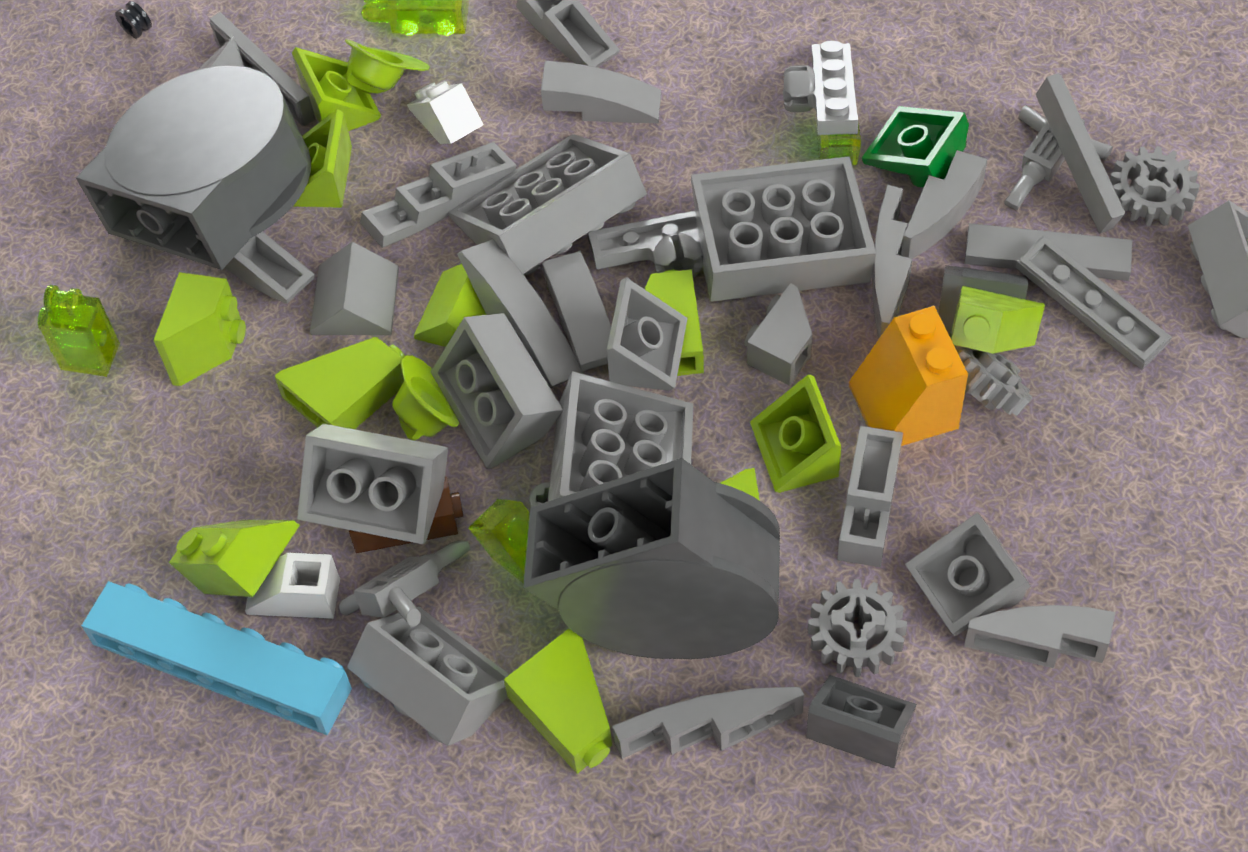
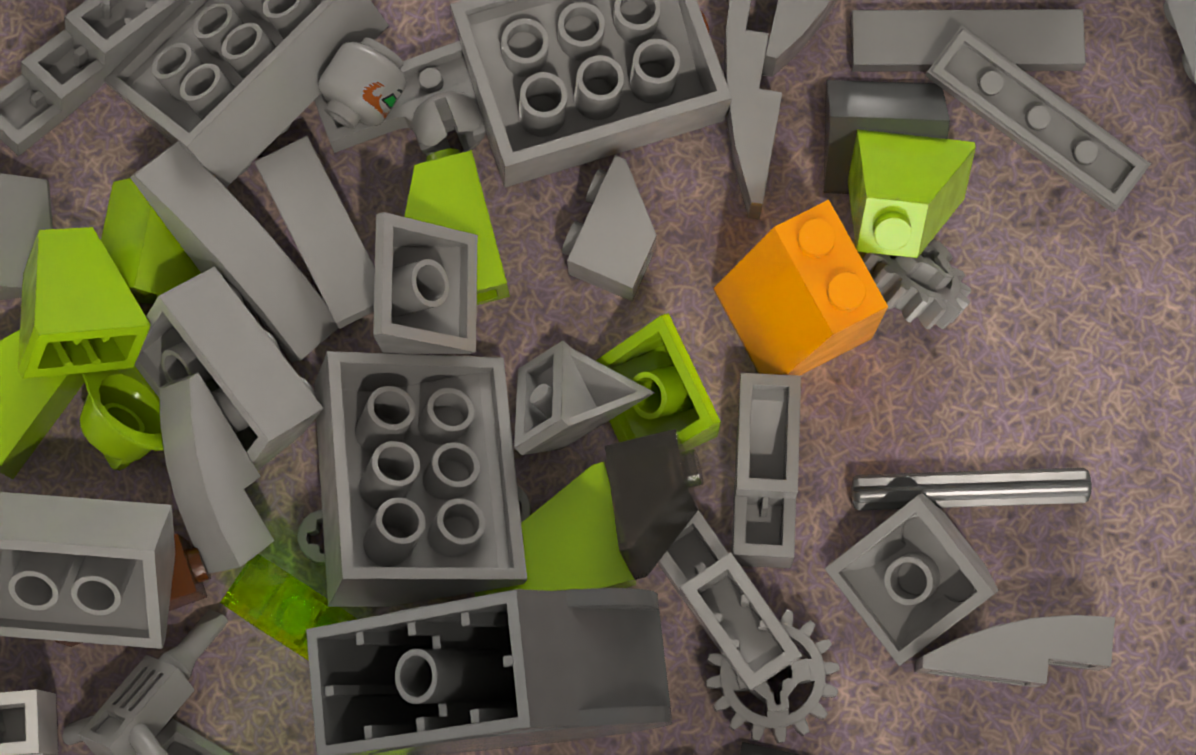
camera: 10 degrees left, 20 degrees up
(407, 330) = (76, 308): none -> lime slope
(476, 443) = (210, 476): none -> light grey slope
(623, 220) = (362, 83): none -> light grey head
(736, 434) = (567, 397): none -> light grey slope
(788, 484) = (651, 495): none -> clear smoke slope
(820, 554) = (727, 604): none -> light grey slope
(1027, 528) = (973, 488): none -> axle

